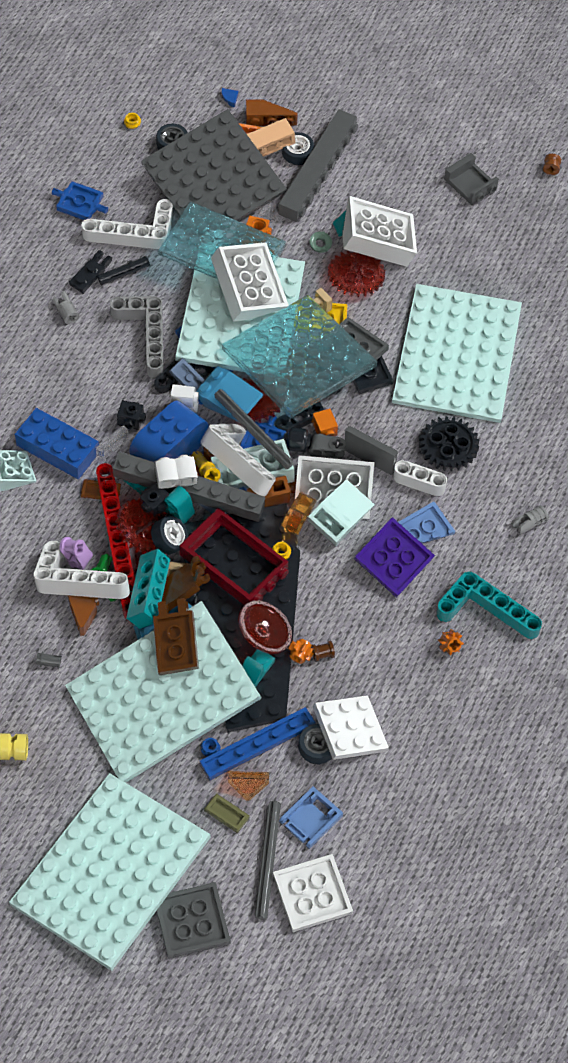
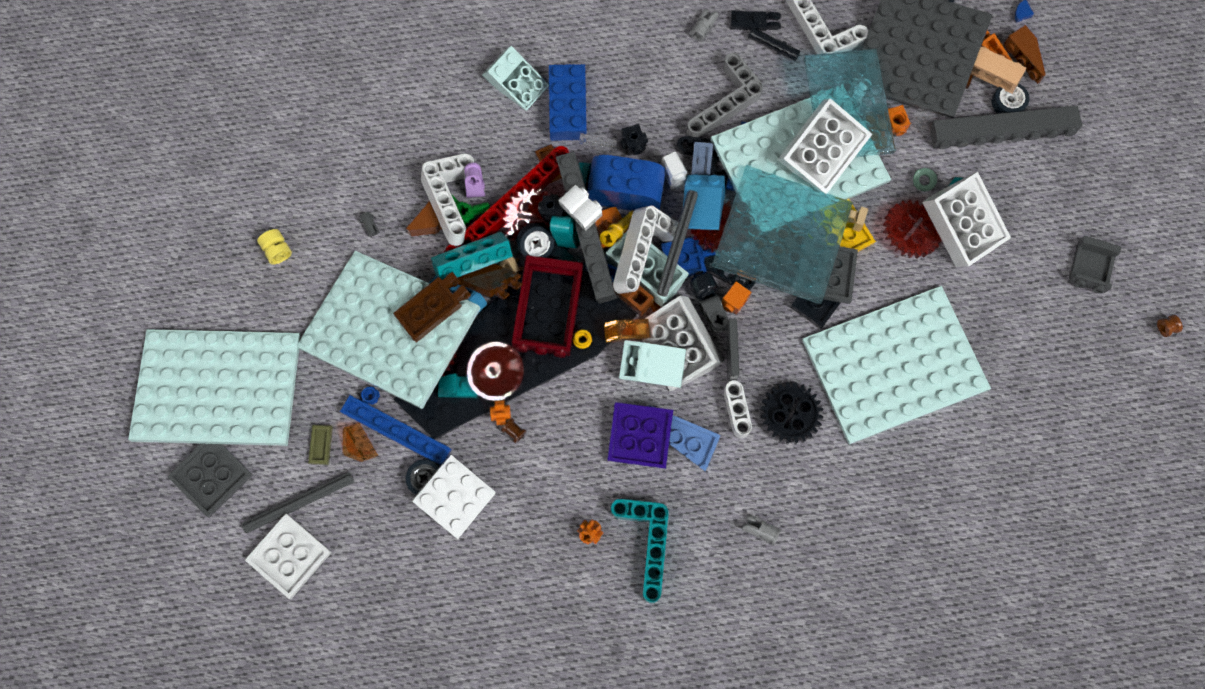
camera: 60 degrees right, 15 degrees up
(307, 820) = (353, 514): medium blue container -> none

